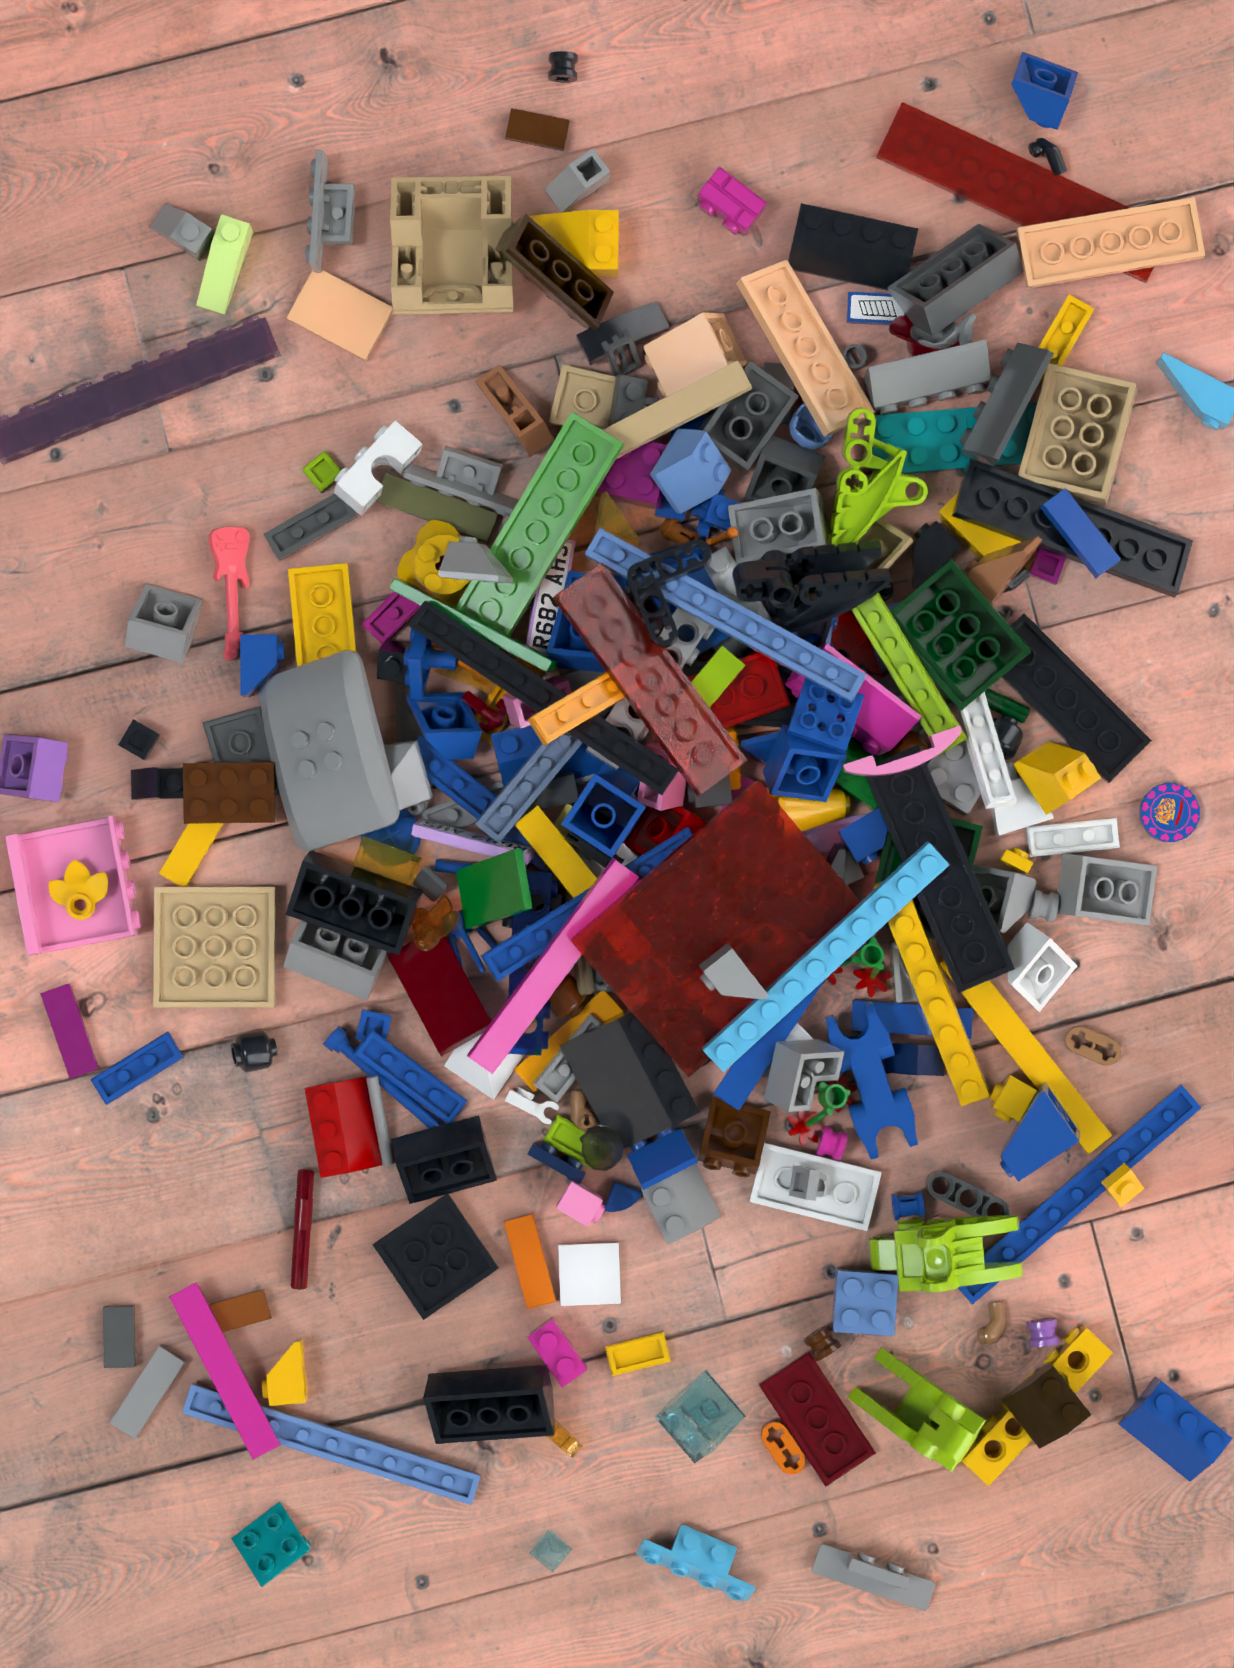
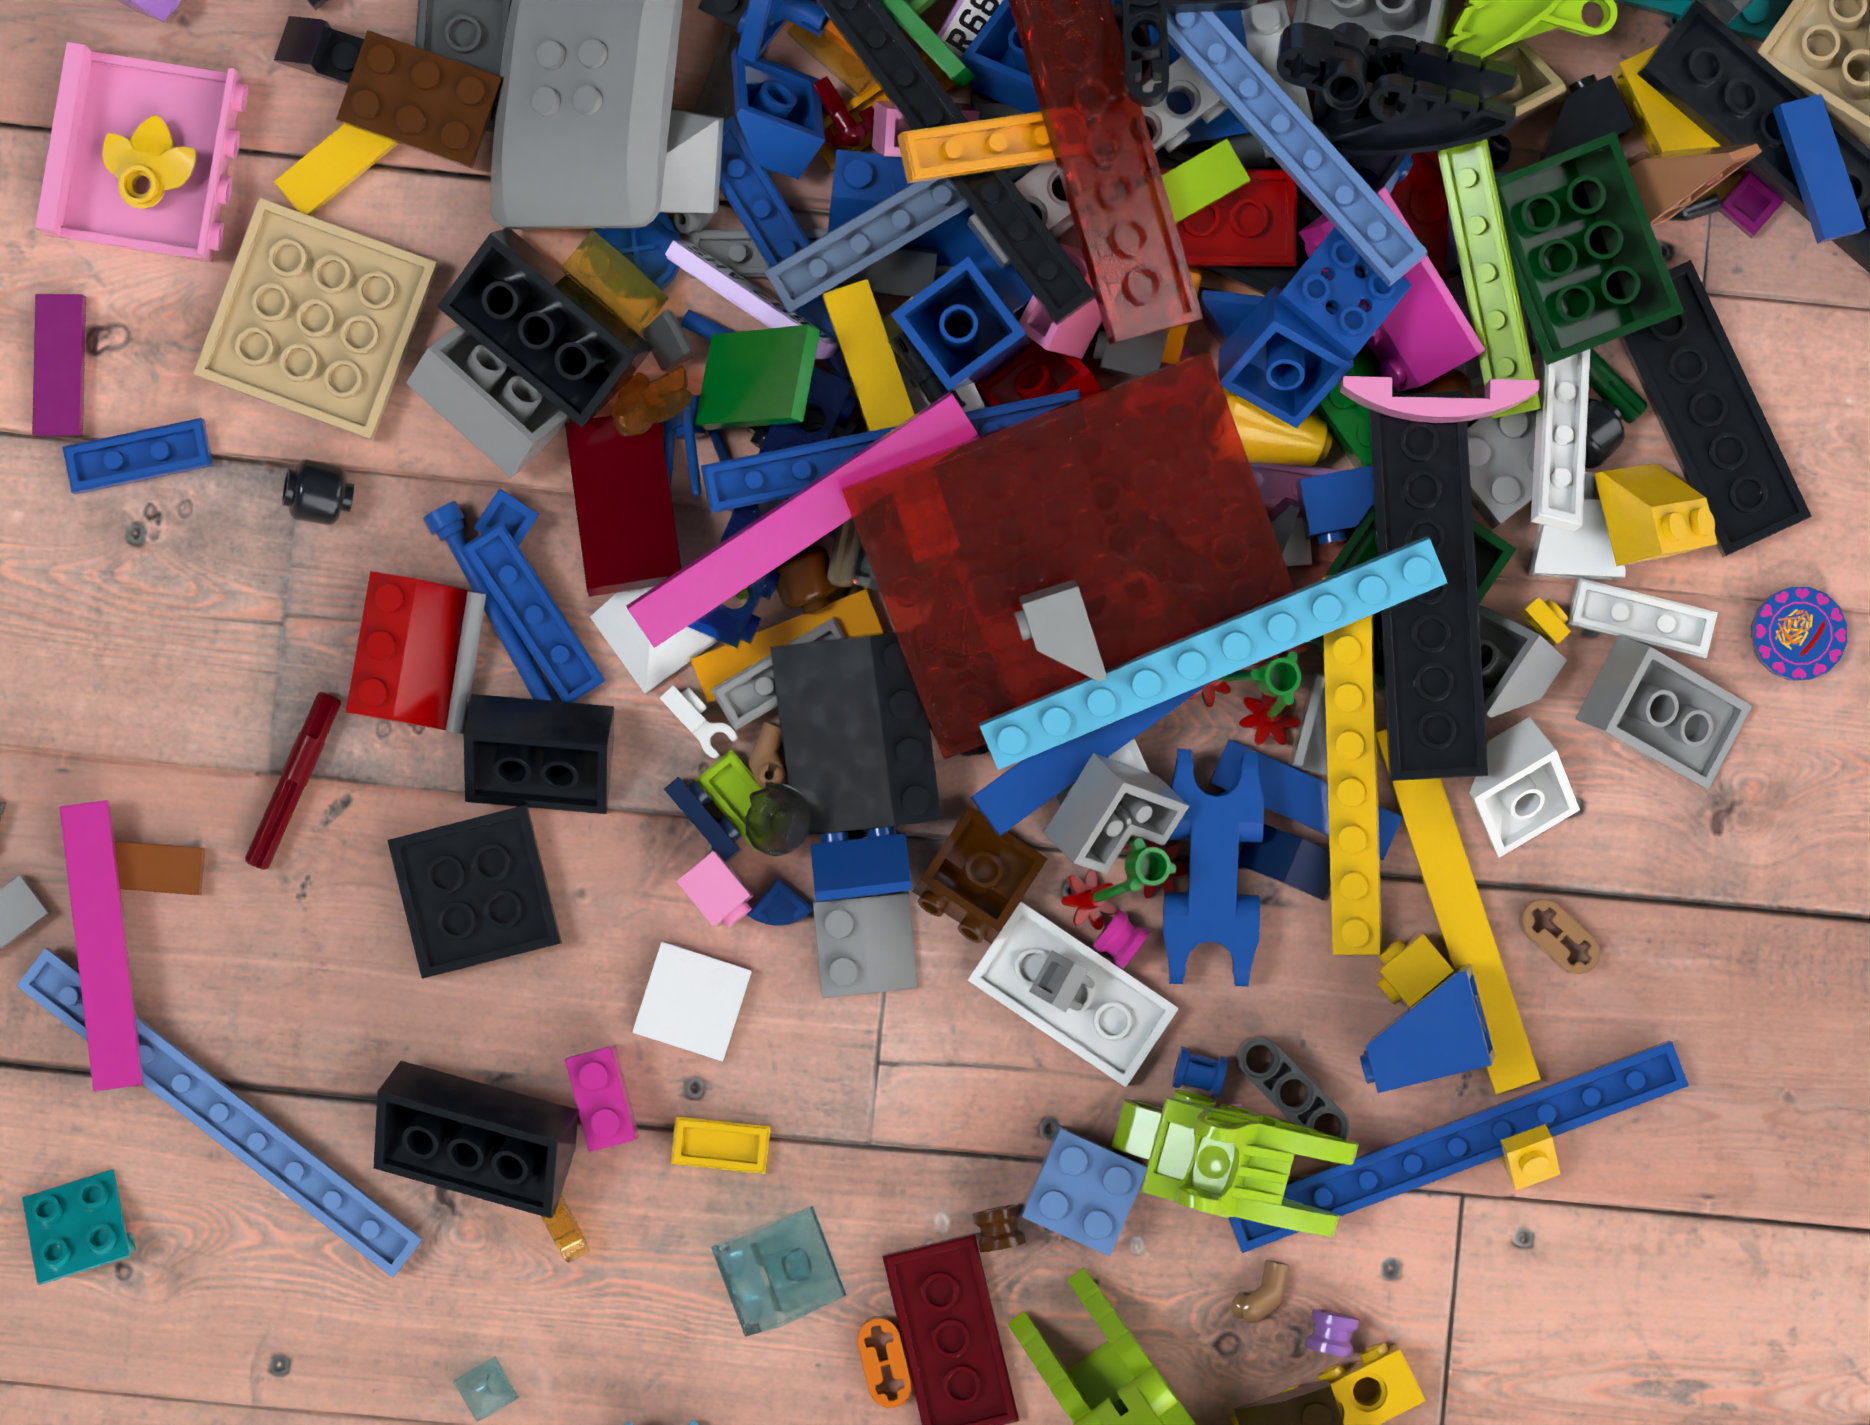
camera: 20 degrees right, 0 degrees up
(287, 1379) = (191, 990): yellow slope -> none
(530, 1261) = (611, 950): orange tile -> none
(1044, 906) = (1563, 703): light grey wheel -> none

